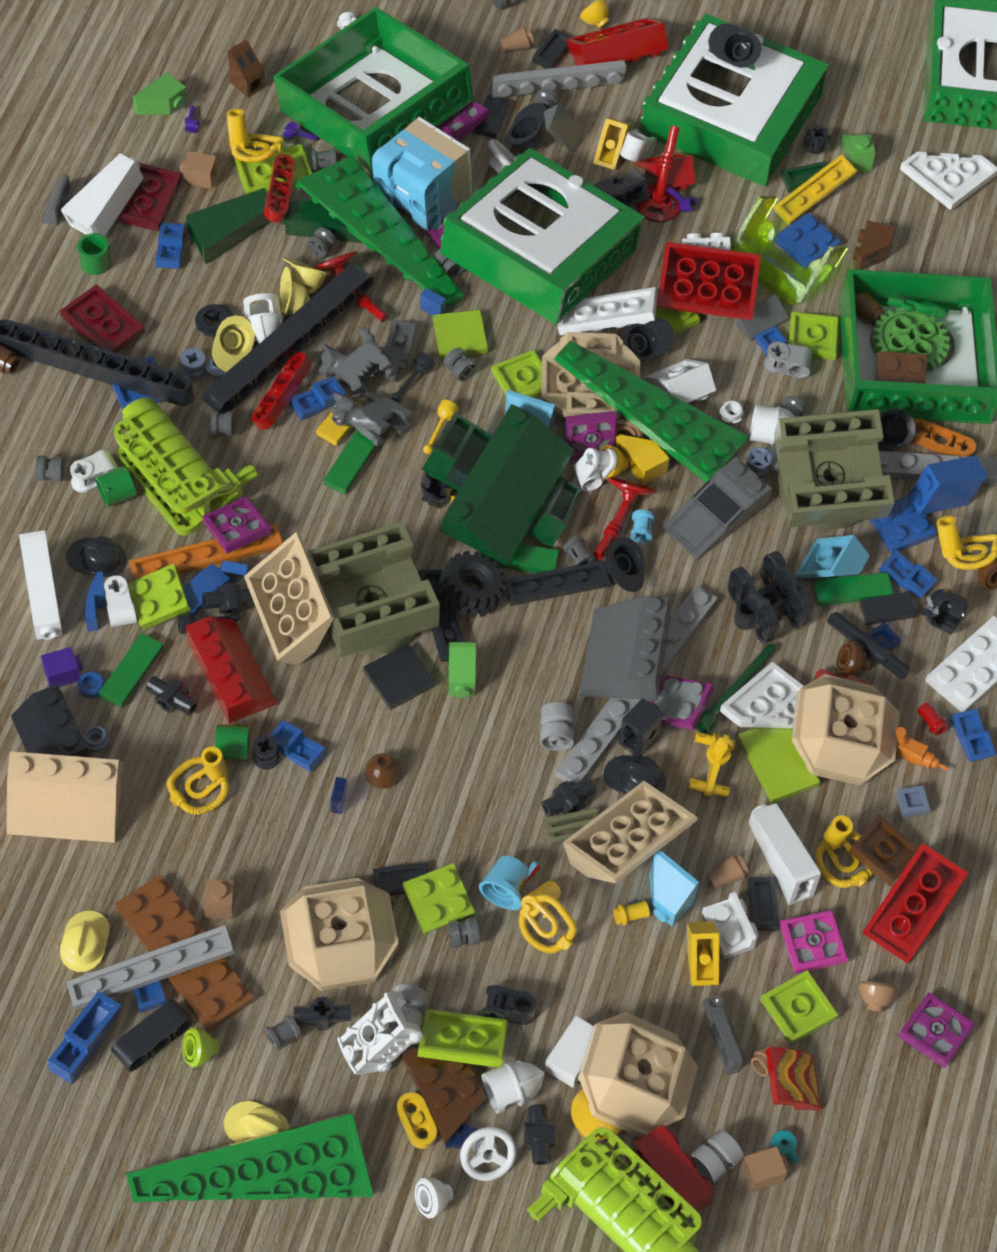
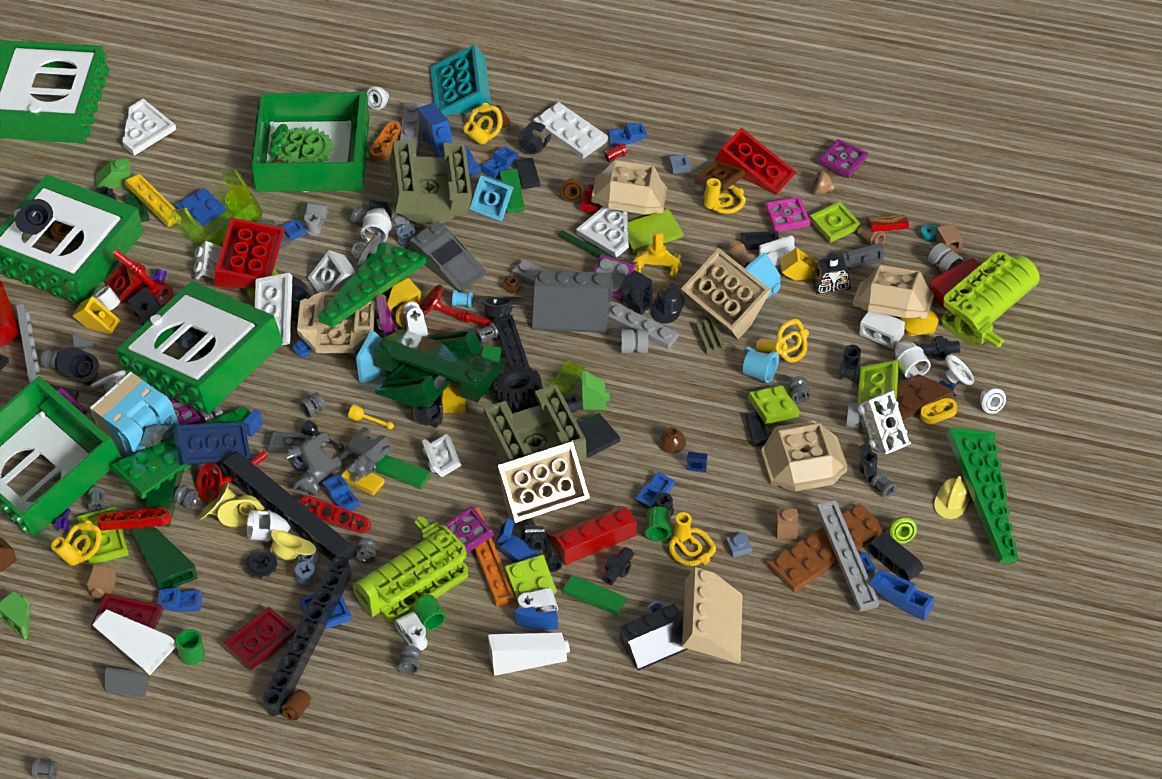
camera: 85 degrees left, 10 degrees down
(61, 667) = (597, 635): dark purple brick -> none
(84, 941) = (824, 605): light yellow piece -> none
(90, 684) = (608, 620): blue tile -> none
(96, 555) = (489, 621): black piece -> none
(191, 124) = (46, 595): dark purple hand -> none
(197, 843) = (739, 544): none -> sand blue plate
(368, 499) = (441, 455): none -> white bracket
(381, 251) = (210, 442): none -> dark blue plate
(390, 191) = (154, 434): none -> flat silver plate
(460, 330) = (280, 409): lime tile -> none
(501, 648) = (568, 377): none -> clear neon green tile
(520, 374) = (323, 371): lime tile -> none
(568, 798) = (690, 336): black axle -> none
(631, 912) = (776, 307): yellow pin -> none
(672, 591) = (512, 284): none -> reddish brown plate
(681, 986) = (831, 275): none -> black torso
(719, 414) = (370, 247): none -> flat silver slope
(778, 582) = (528, 226): black piece -> none
(785, 853) = (727, 222): white slope -> none
(816, 333) = (289, 206): lime tile -> none
(870, 646) = (555, 185): black axle -> none
(874, 246) = (208, 168): reddish brown slope -> none
(885, 636) = (552, 177): clear blue tile -> none
(897, 429) = (379, 162): black piece -> none
(900, 367) = (336, 149): reddish brown plate -> none
(915, 751) = (644, 158): orange piece -> none

